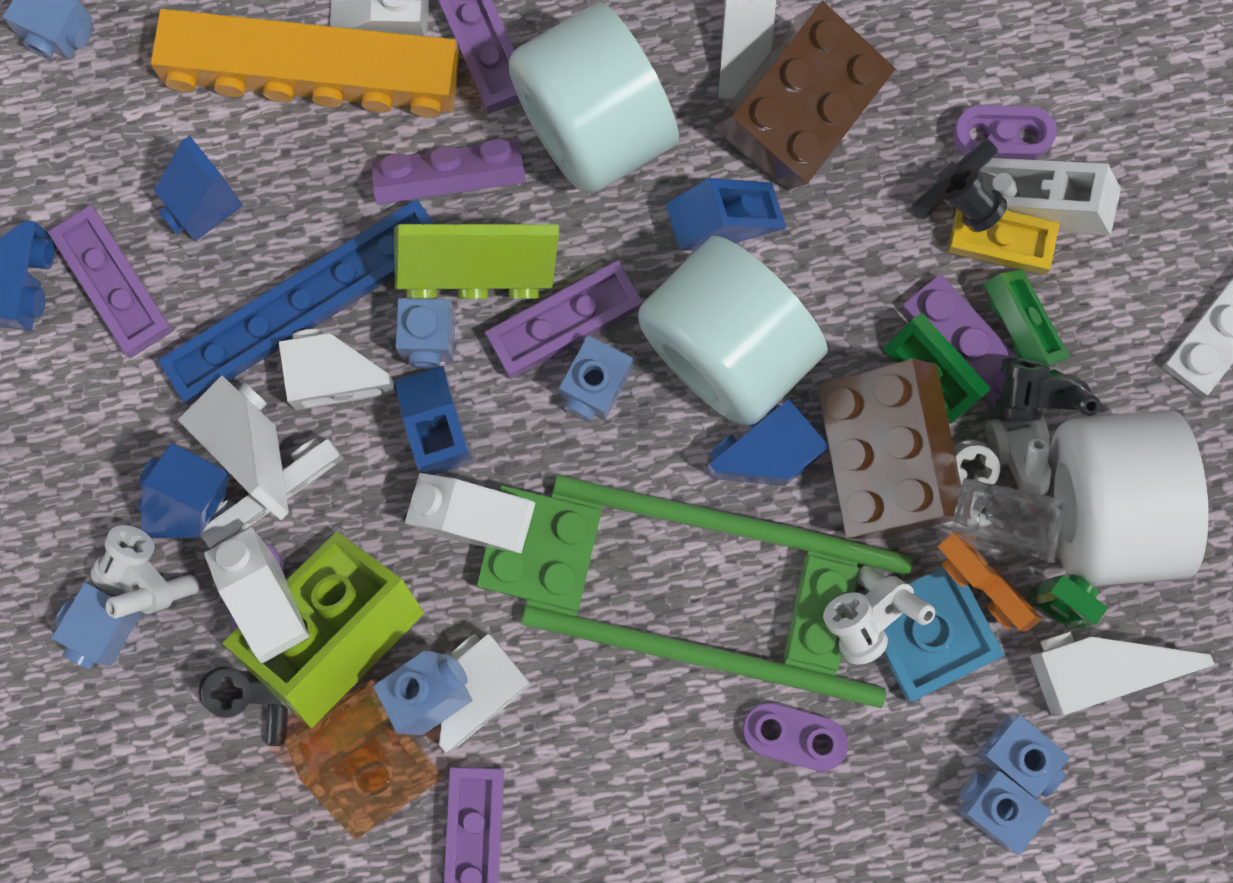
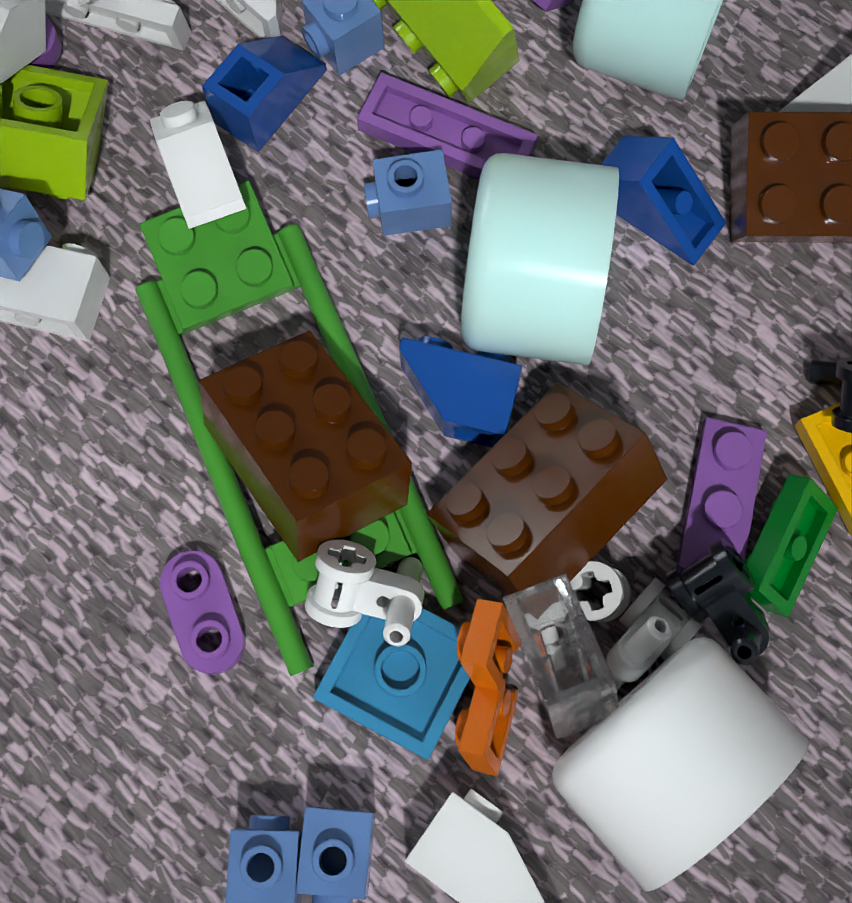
camera: 55 degrees right, 5 degrees down
(740, 584) = (305, 443): none -> reddish brown brick
(959, 381) = (668, 516): green plate -> none
(1069, 601) = (529, 781): green plate -> none

